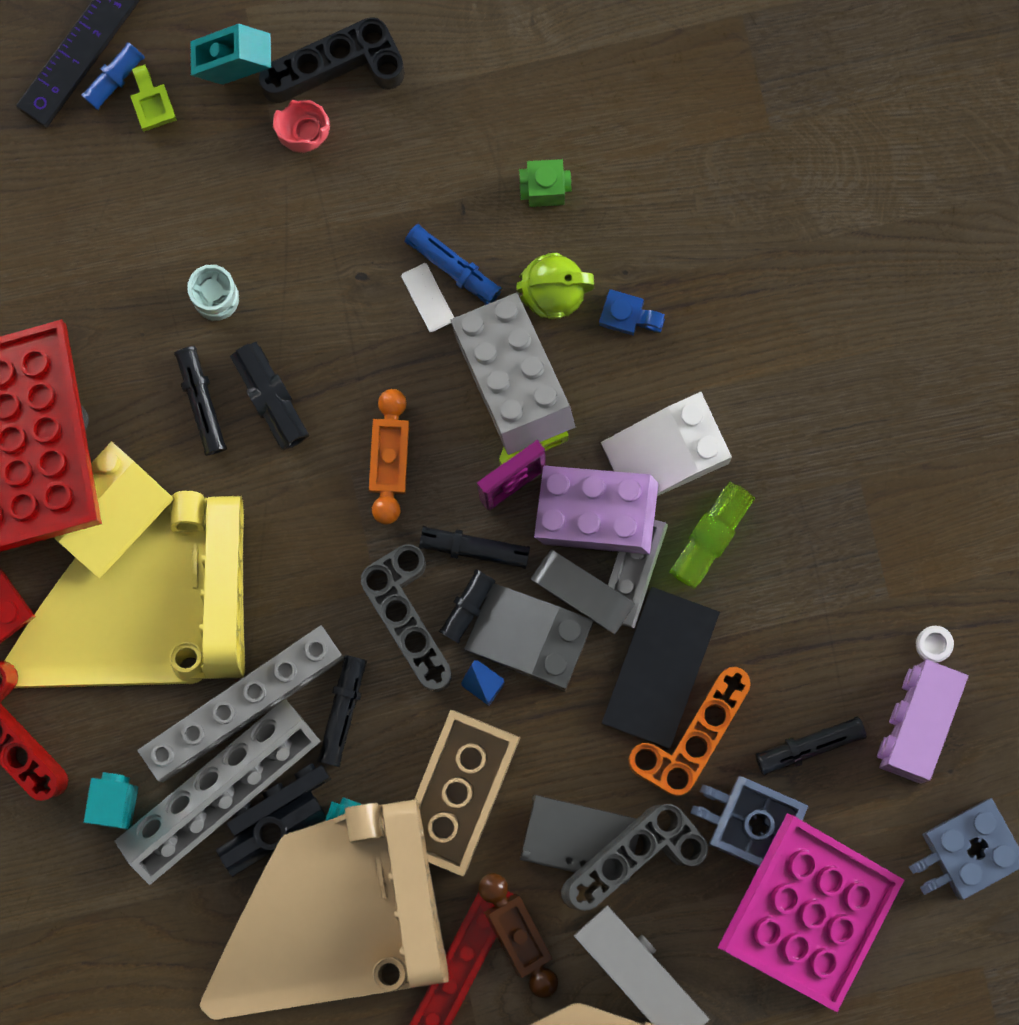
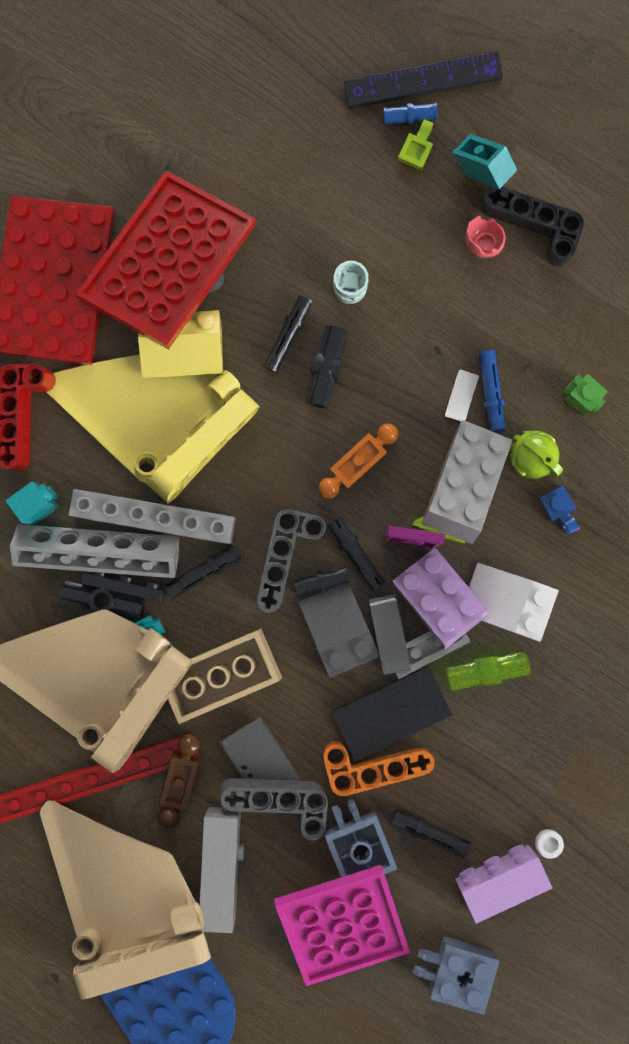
camera: 40 degrees right, 5 degrees up
(482, 682) = (290, 629): blue slope -> none

